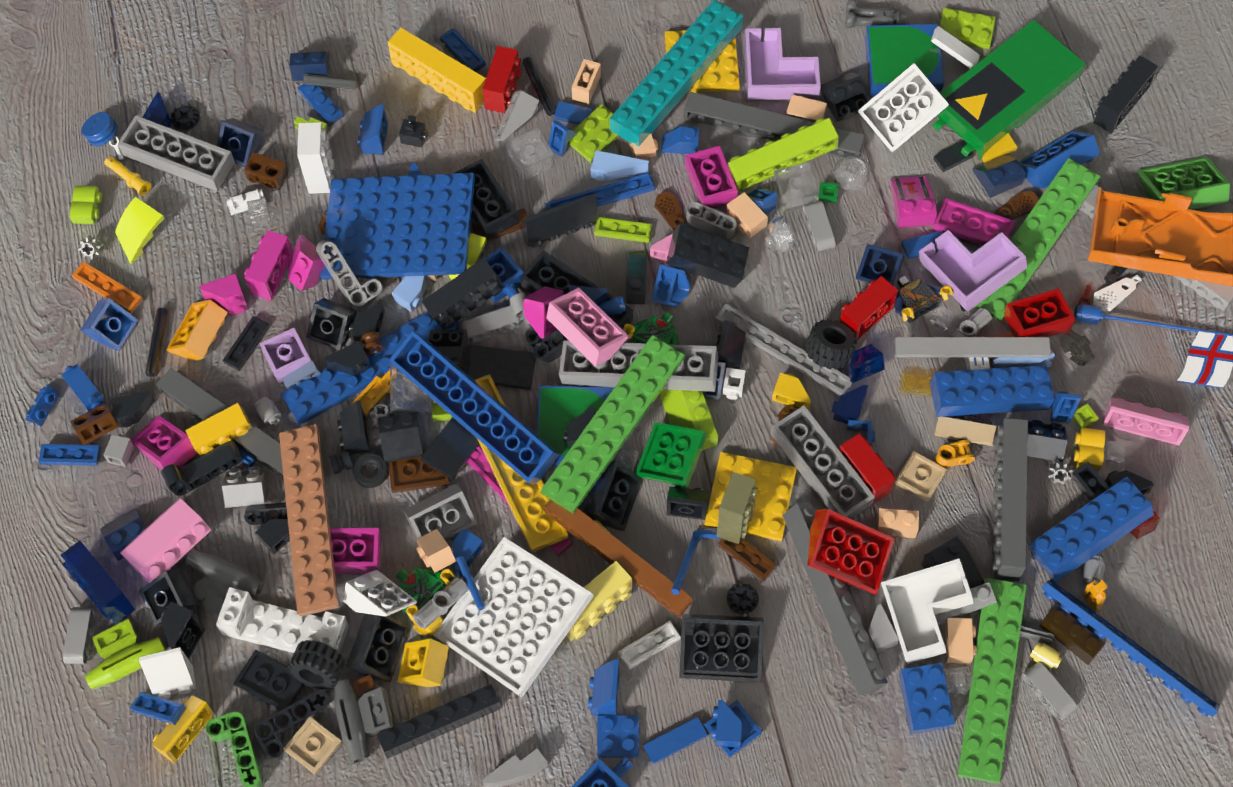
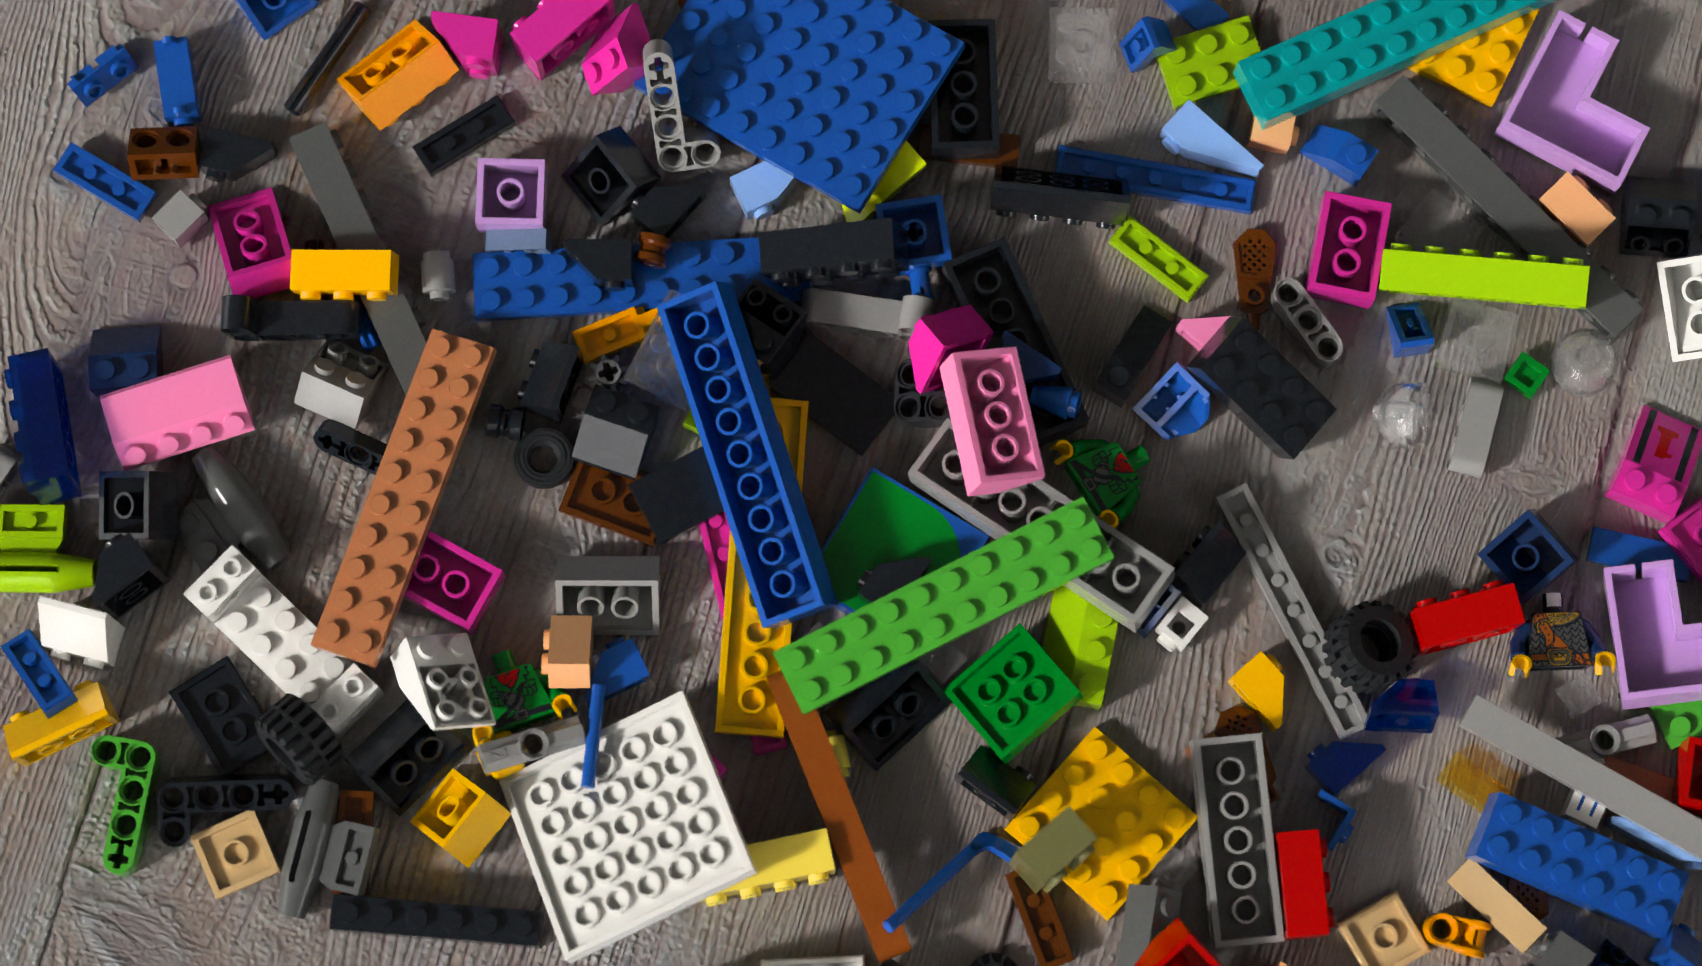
camera: 25 degrees right, 15 degrees up
(274, 534) = (344, 486): black slope -> none
(747, 215) = (1369, 345): light nougat brick -> none

